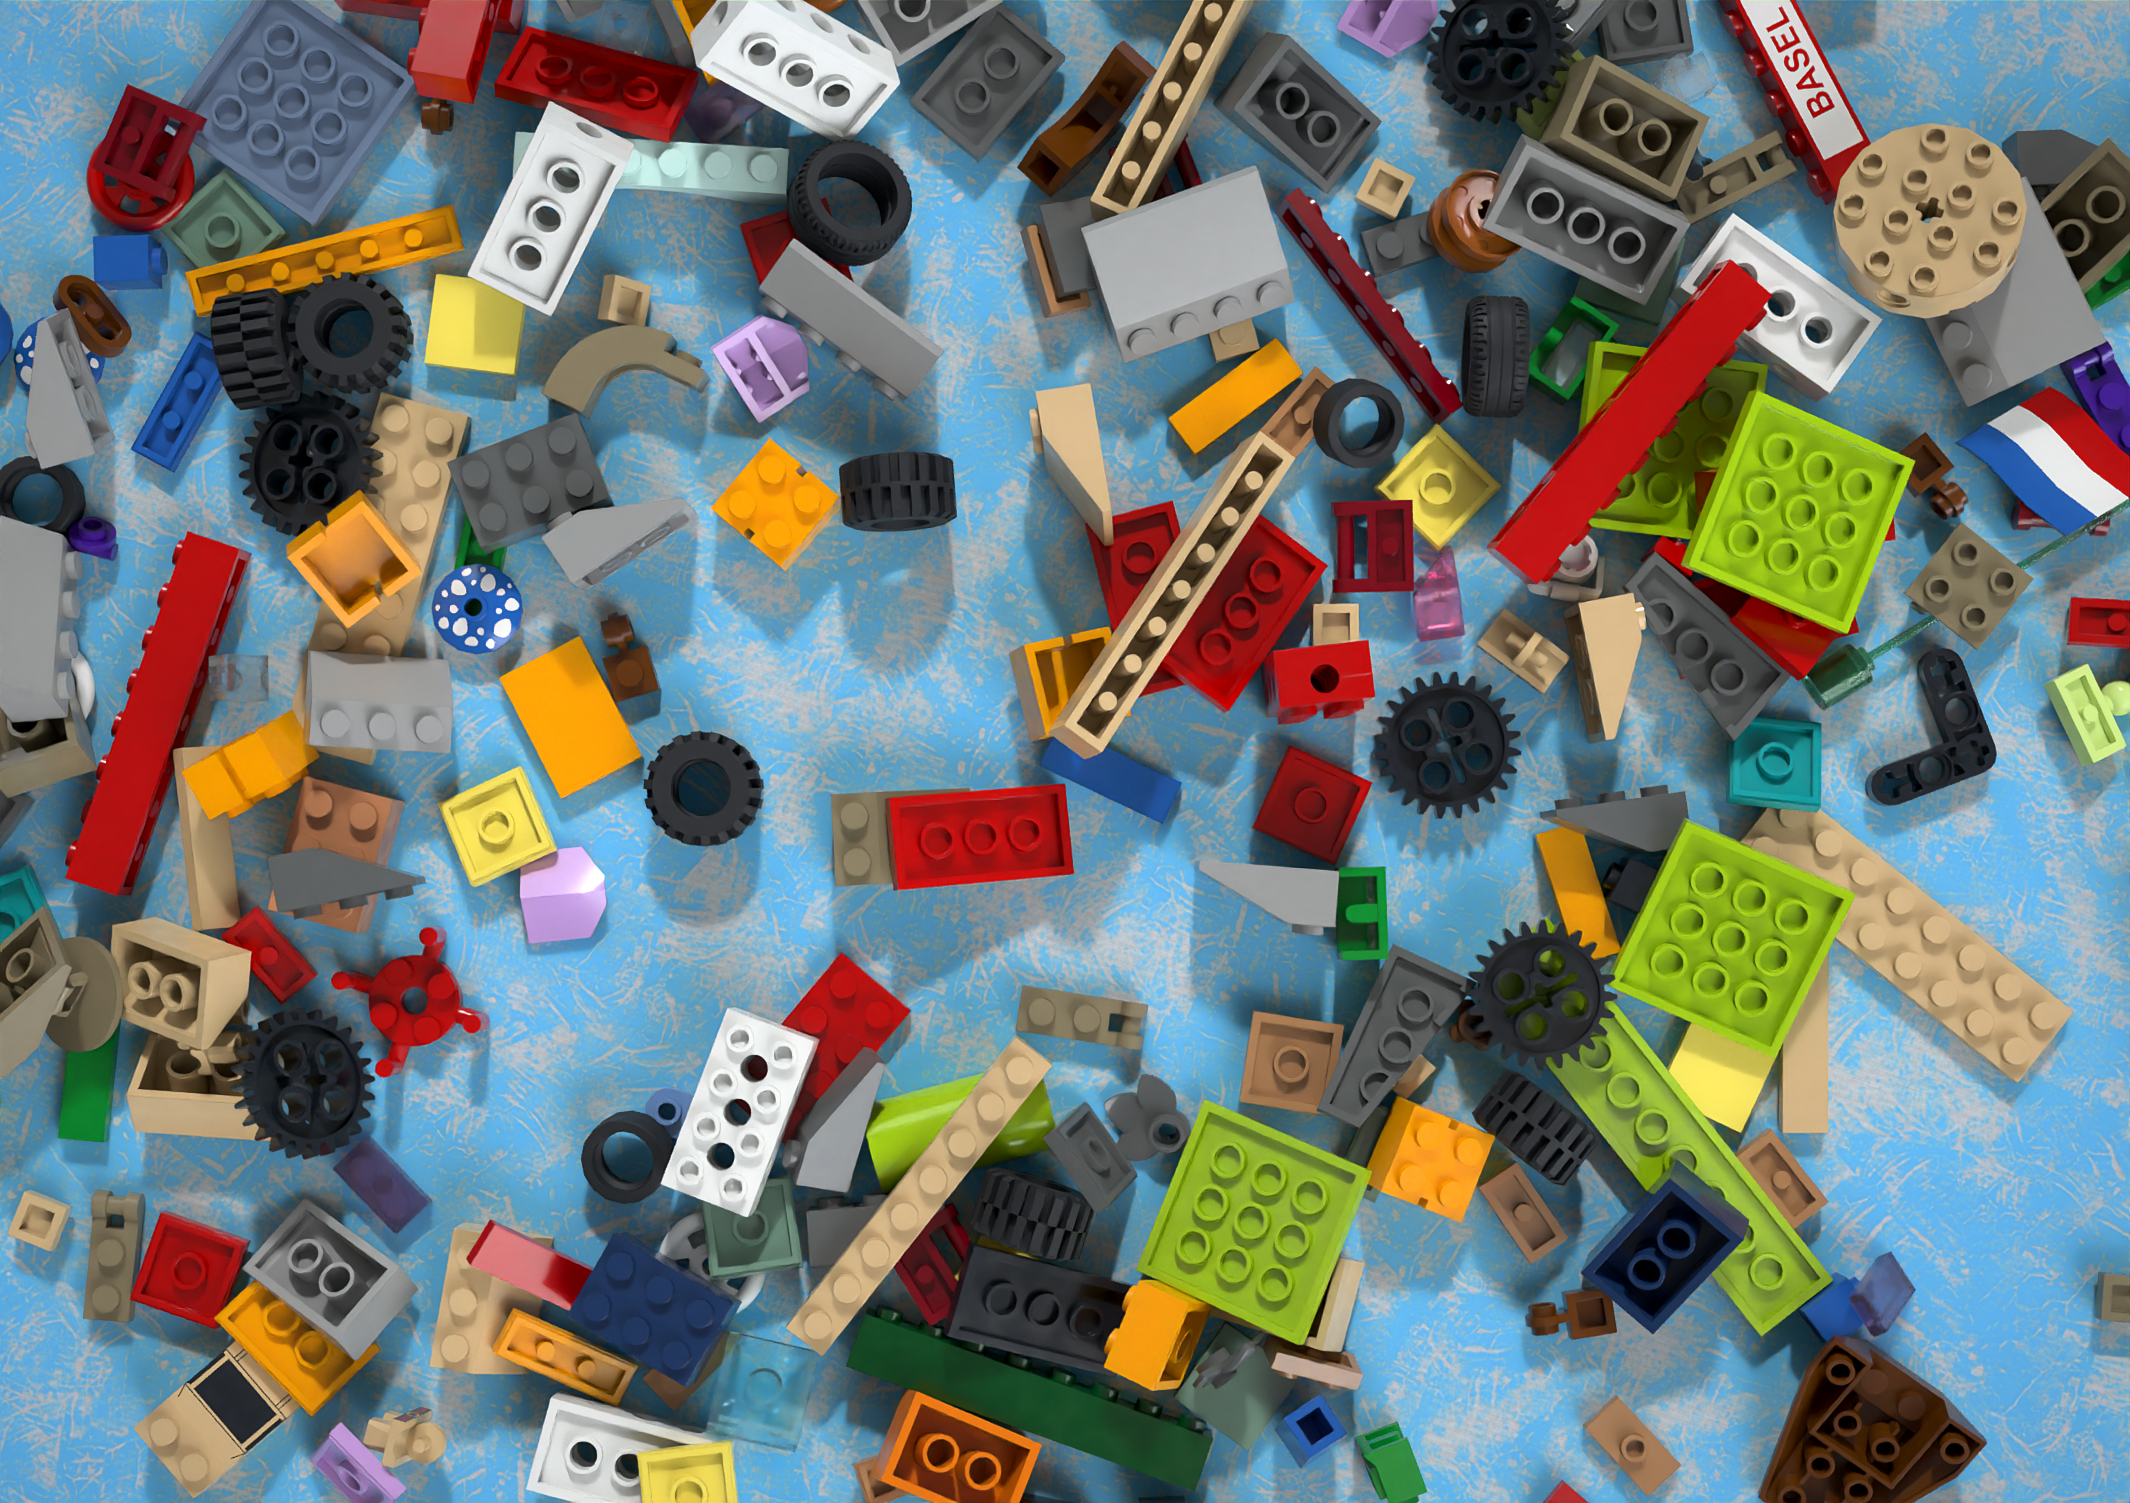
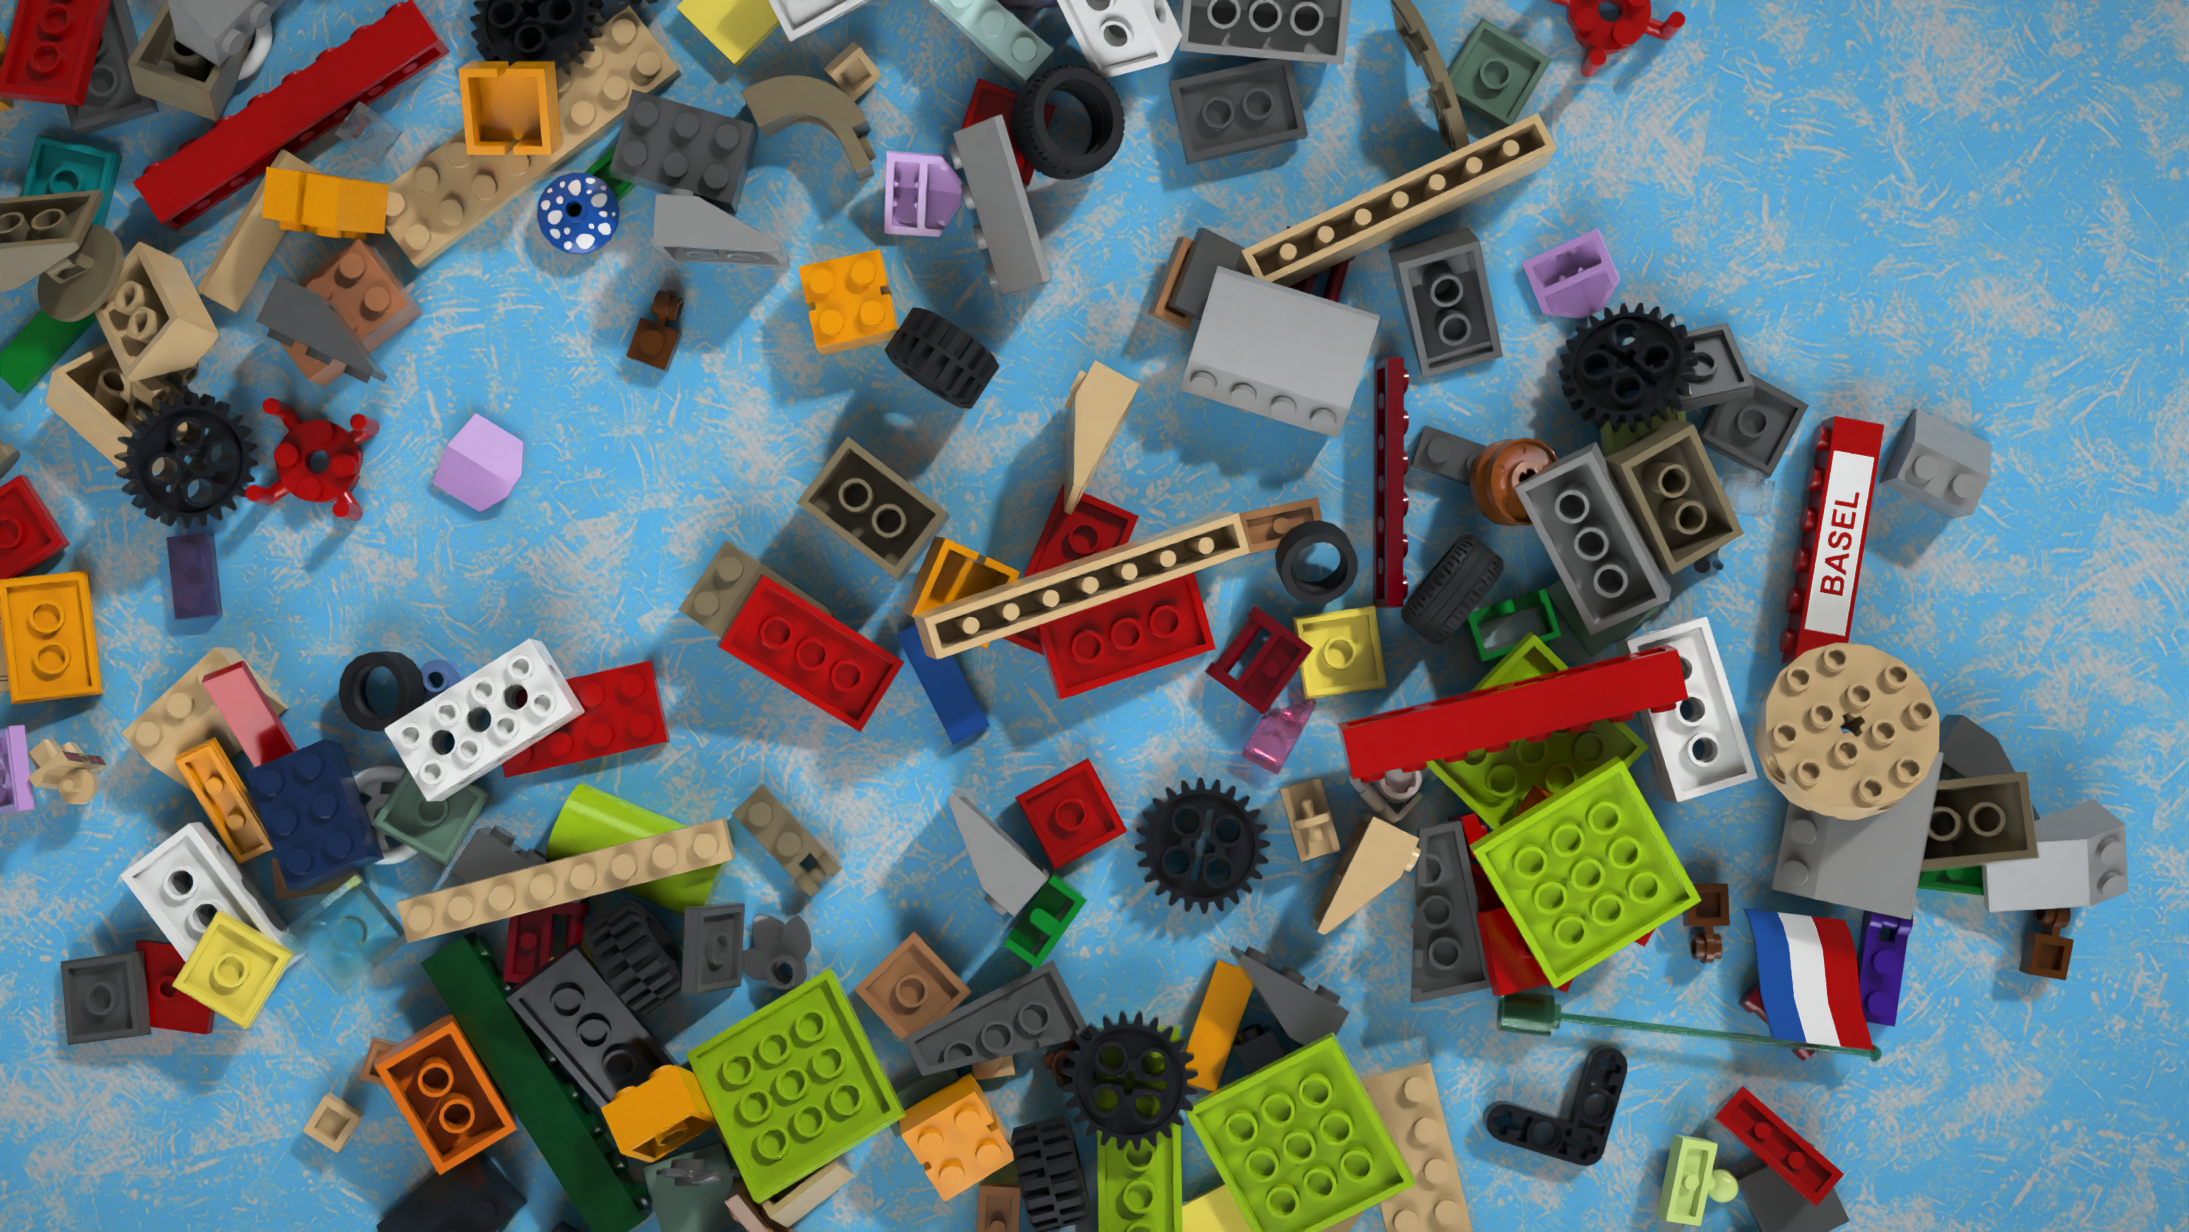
camera: 35 degrees right, 0 degrees up
(273, 955) = (239, 349): red plate -> none
(331, 1278) = (101, 616): light grey slope -> none
(378, 702) = (452, 226): light grey slope -> none
(497, 826) = (473, 381): light yellow tile -> none
(571, 717) = (586, 342): light orange tile -> none
(664, 789) = (606, 458): black tyre -> none
(833, 1129) = (544, 783): slope -> none
(937, 669) = (873, 509): none -> dark tan brick
(1091, 121) = (1286, 197): reddish brown arch -> none
(1234, 341) = (1273, 434): tan plate -> none
(1235, 396) = (1243, 475): light orange tile -> none
(1334, 623) = (1187, 697): tan plate -> none
(1340, 669) = (1163, 733): red brick -> none
(1384, 189) = (1466, 406): tan plate -> none
(1734, 178) = (1728, 592): dark tan plate -> none
(1776, 765) = (1431, 1043): teal tile -> none
(1968, 586) = (1672, 1020): dark tan hinge -> none

